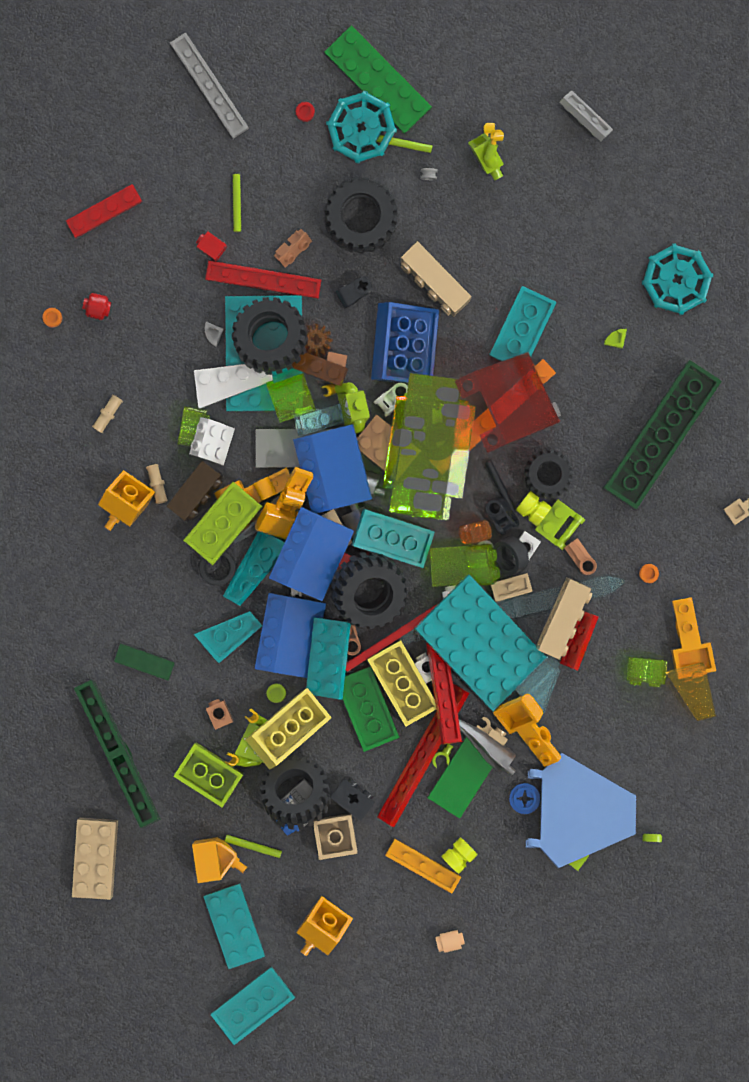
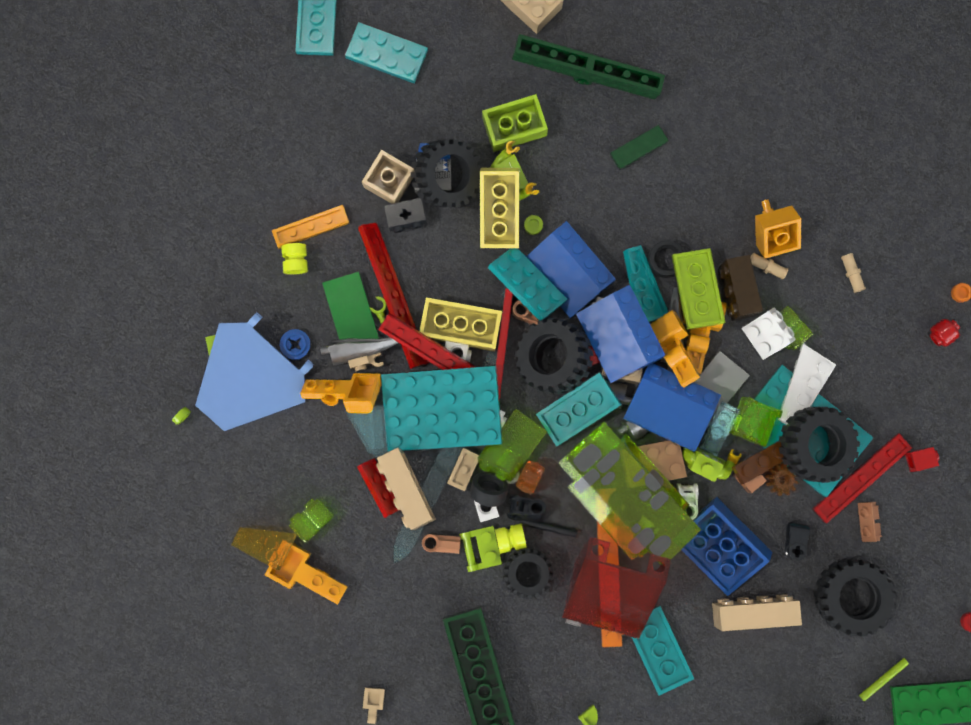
camera: 130 degrees right, 5 degrees down
(213, 333) = (850, 404): light grey tile -> none
(214, 858) = (449, 73): light orange piece -> none
(219, 722) = (550, 161): nougat brick -> none
(229, 635) = (606, 224): teal wing -> none
(236, 203) = (939, 507): lime bar -> none
(253, 846) = (433, 114): lime bar -> none
(323, 927) = (328, 113): light orange piece -> none
(368, 709) = (462, 282): green plate -> none
(372, 125) = (936, 653): teal plate -> none
(429, 174) = (843, 679): light grey bush -> none
(450, 941) = (237, 198): light nougat brick -> none
(648, 573) = (384, 586): orange tile -> none

